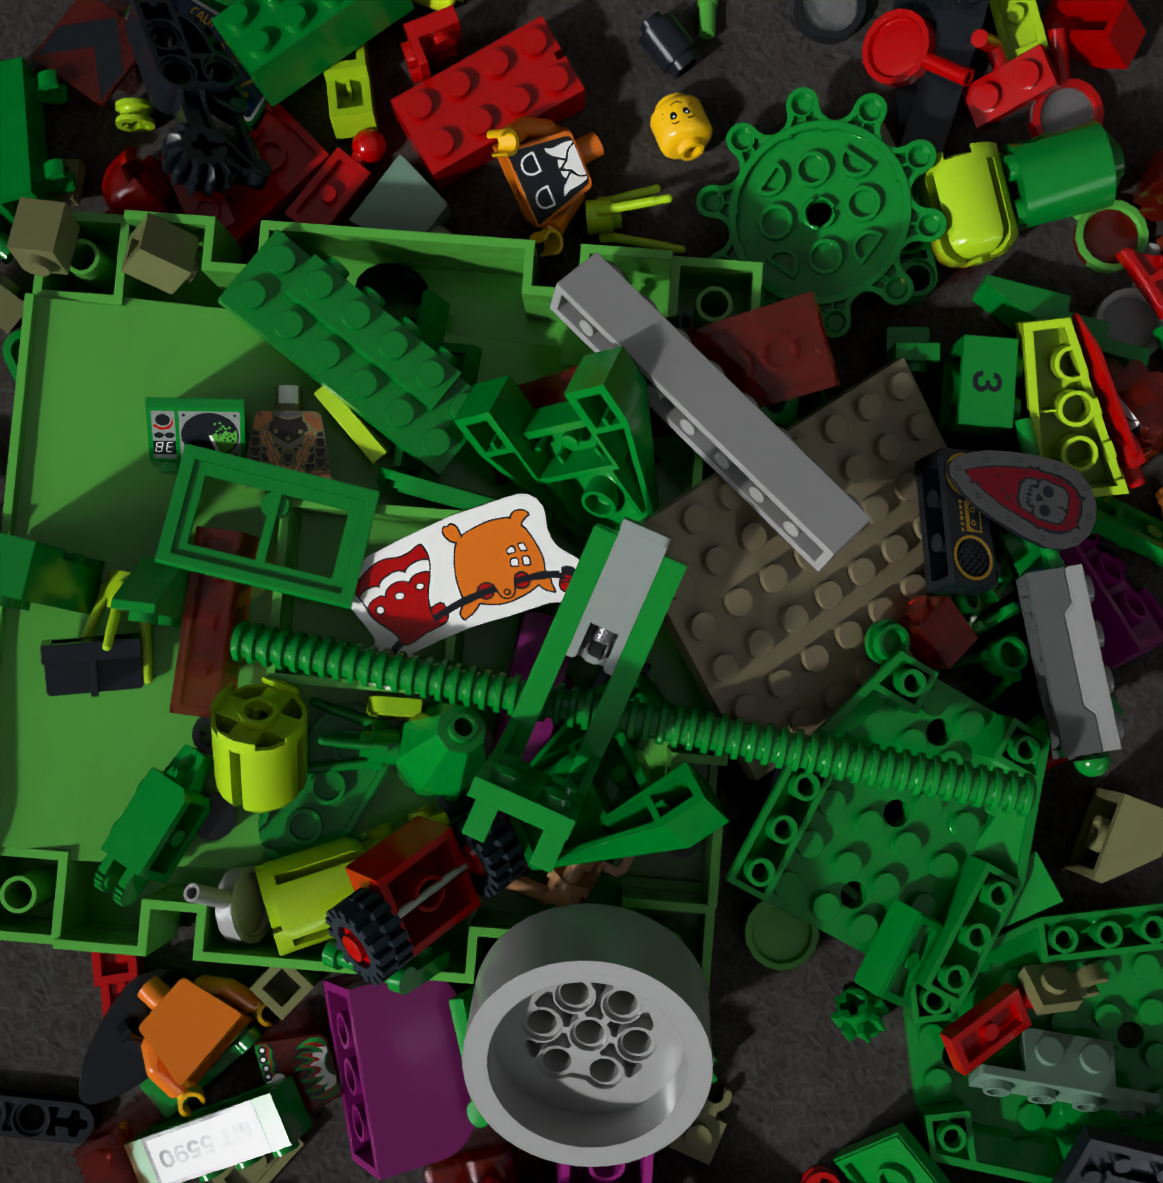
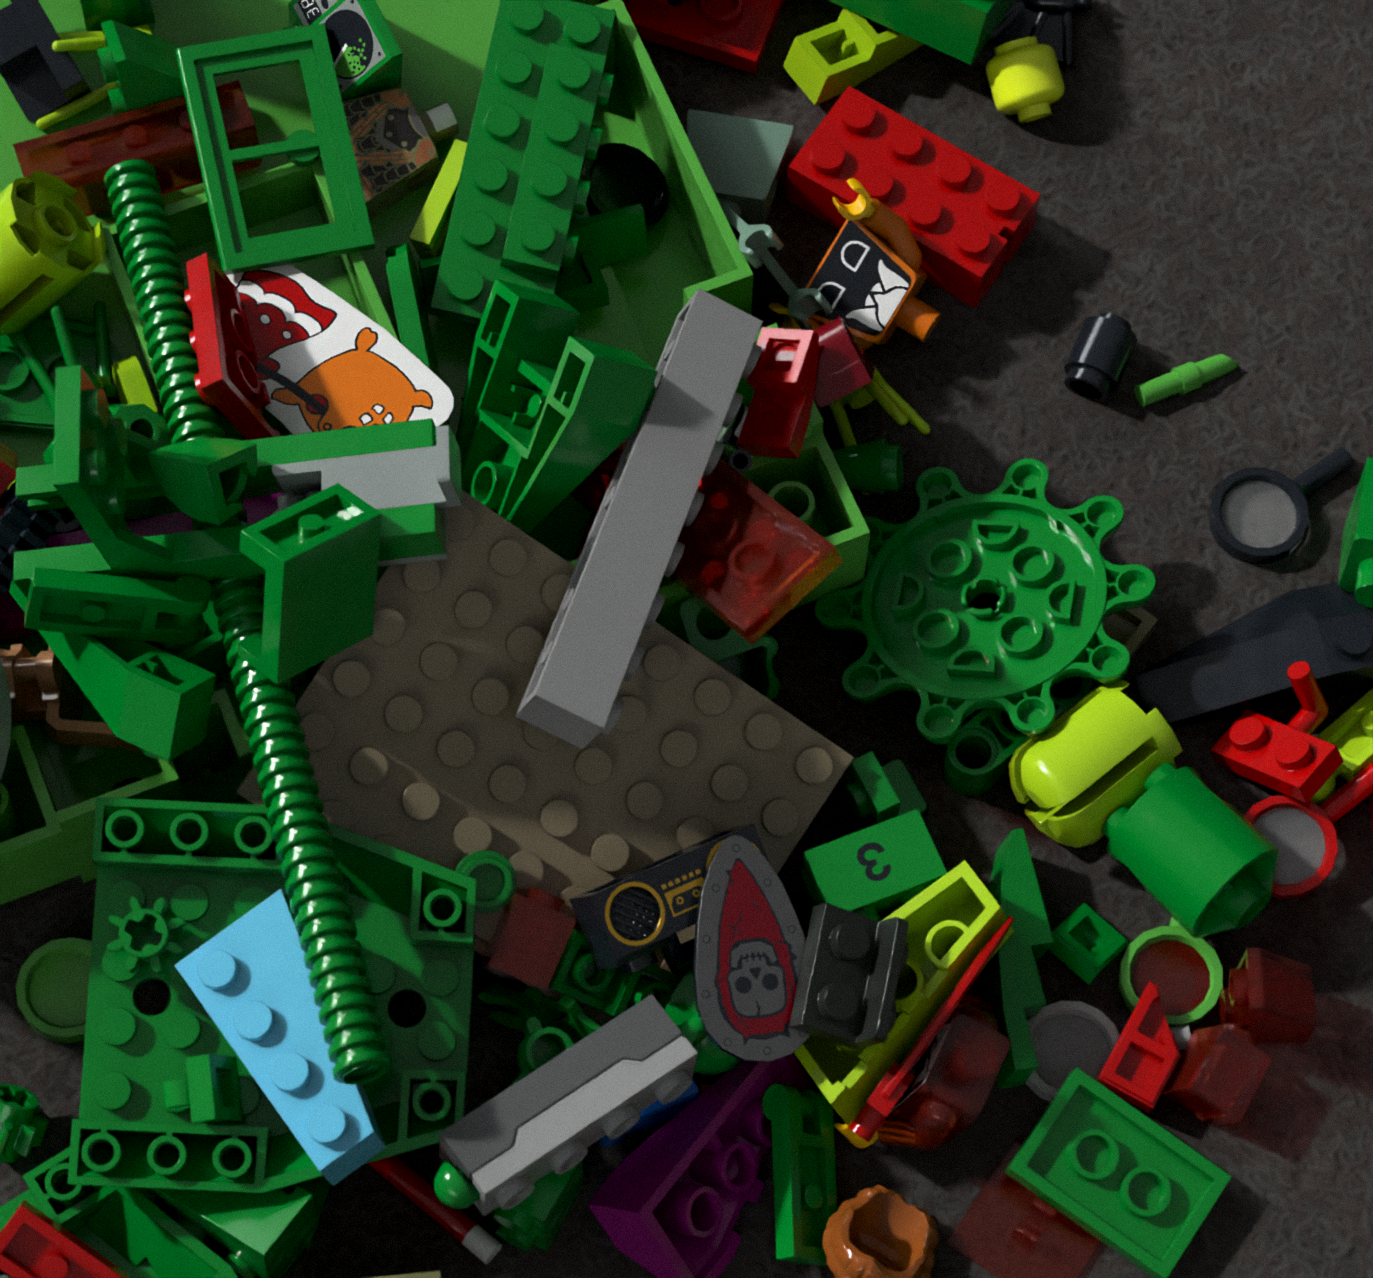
camera: 60 degrees right, 20 degrees down
(338, 181) = (730, 87): red plate -> none
(432, 42) = (940, 98): red bracket -> none
(442, 644) = (221, 347): none -> red wing
(511, 228) = (753, 244): none -> sand green flag
(555, 707) = (205, 475): none -> green brick
(604, 809) = (117, 606): none -> green plate
(628, 222) = (840, 363): none -> dark red plate
(641, 265) = (782, 393): none -> red slope
(677, 671) = (316, 581): none -> green panel
(679, 234) = (872, 466): none -> green cone
(681, 126) = (1009, 410): yellow head -> none
(841, 880) = (150, 952): none -> green gear
(898, 953) = (101, 1081): green slope -> none
(903, 48) = (1245, 611): red piece -> none
(923, 835) = (264, 1006): none -> medium azure wedge
(946, 891) = (208, 1091): none -> green tile
(1068, 274) = (1087, 943): none -> green tile
(1070, 437) = (849, 977): none -> pearl dark grey bracket

